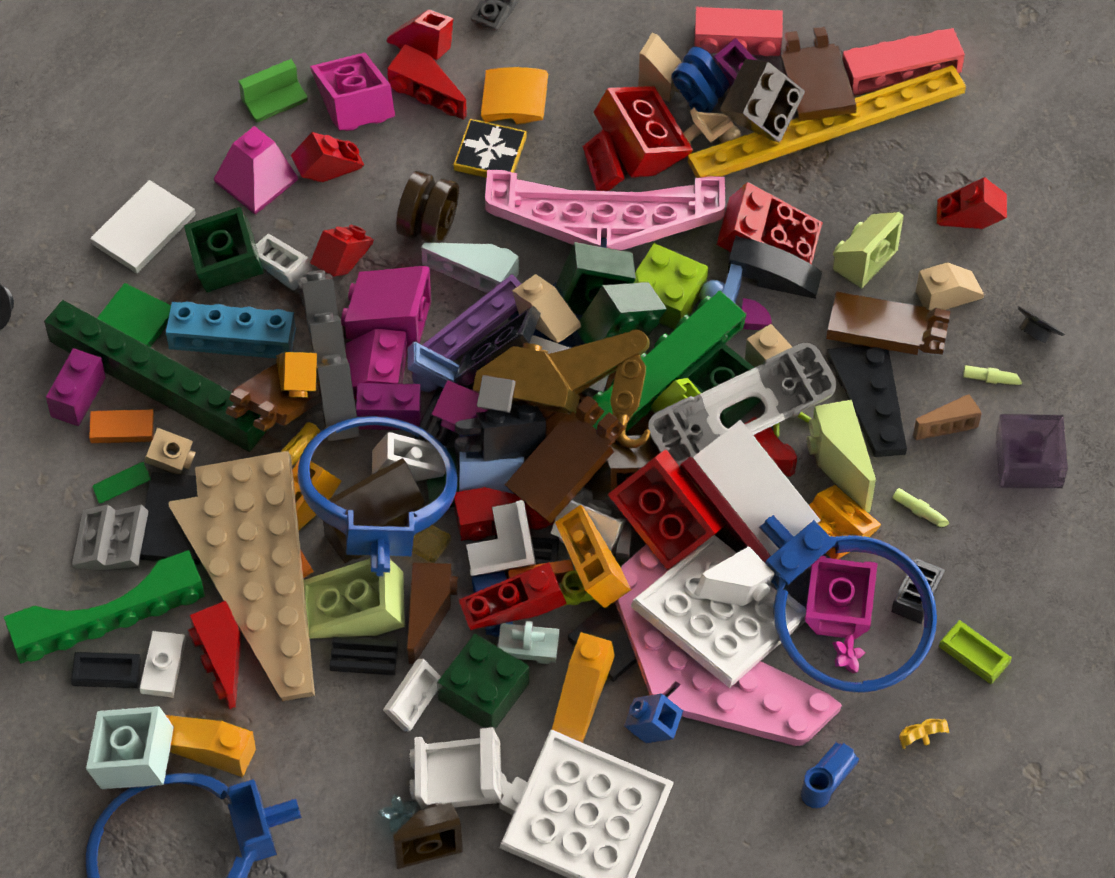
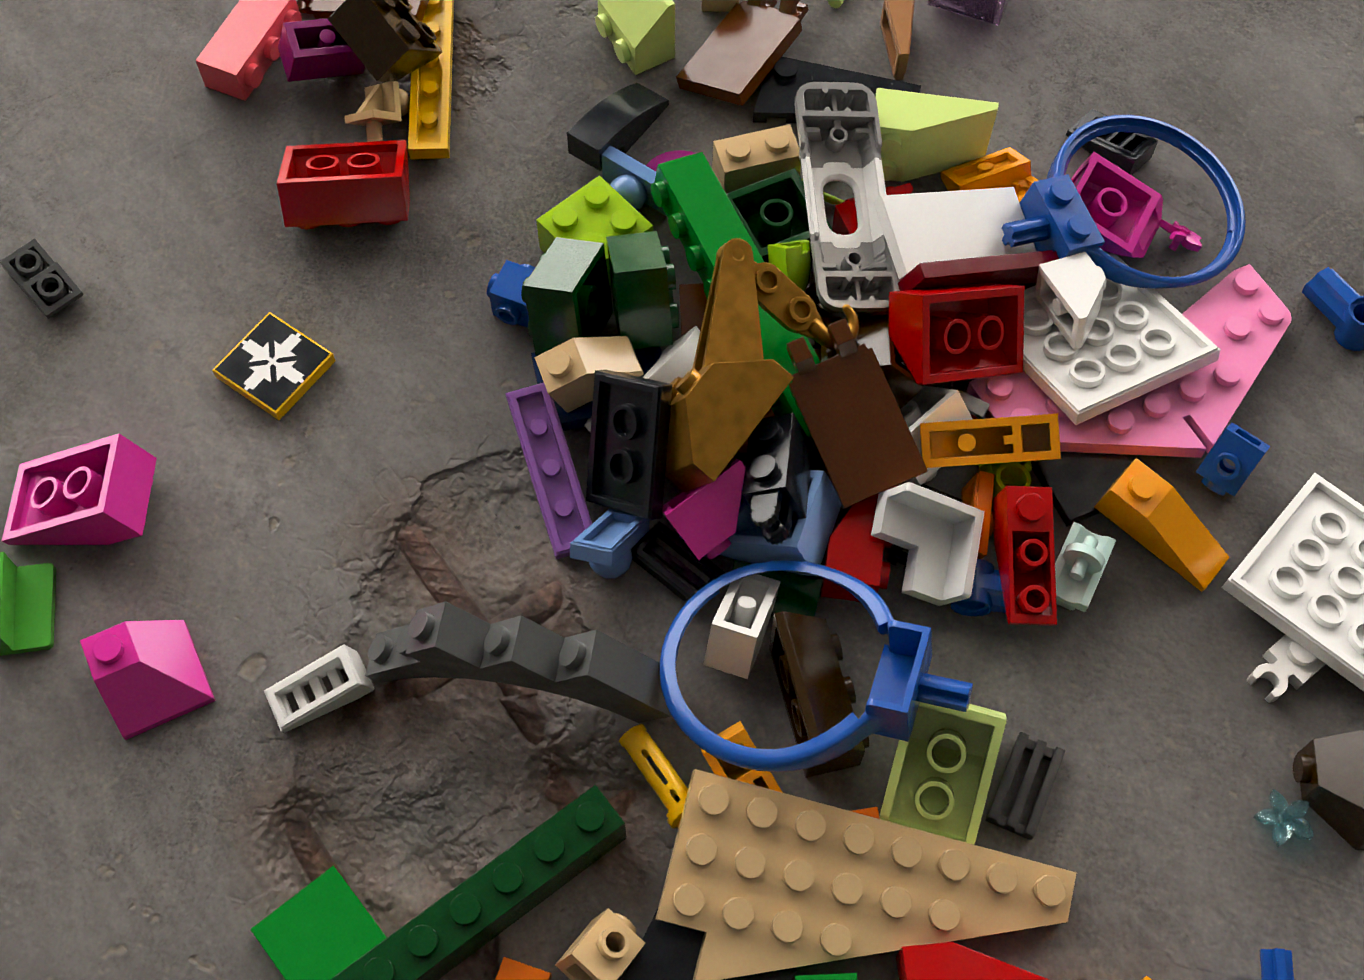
camera: 70 degrees left, 5 degrees up
(142, 226) = (156, 871): white tile -> none
(223, 249) = (273, 756): dark green brick -> none
(230, 330) = (412, 796): dark azure brick -> none
(264, 396) = (578, 762): reddish brown tile -> none
(297, 373) = (553, 714): light orange slope -> none
(326, 157) = (179, 568): red slope -> none
(340, 249) = (348, 598): red slope -> none
(377, 357) = (568, 599): dark pink slope -> none
(389, 301) = (481, 556): dark pink slope -> none
(389, 401) = (645, 609): magenta brick -> none
(413, 695) = (1114, 737): white plate -> none
(423, 79) = (125, 397): red slope -> none
(427, 32) = (41, 376): red slope -> none
(427, 208) = (346, 459): dark brown wheel -> none
(429, 603) = (996, 681): reddish brown slope -> none
(430, 543) = (863, 643): clear yellow tile -> none
(457, 771) = (1251, 717): white panel -> none
(473, 264) = (461, 433): light aqua slope -> none
(483, 682) = (1123, 641): dark green brick -> none
(496, 394) = (740, 451): light grey tile -> none
(514, 94) = (202, 306): light orange slope -> none
(603, 161) = (367, 242): red plate -> none
(621, 217) = (459, 276): bright pink wing -> none
(656, 67) = (264, 131): tan slope -> none
(700, 80) = (307, 94): blue brick -> none
(769, 220) = (545, 107): red slope -> none
(920, 508) = (1010, 99): yellowish green piece -> none
(922, 730) = (1302, 207): yellow piece -> none
(975, 652) = (1210, 117): lime tile -> none

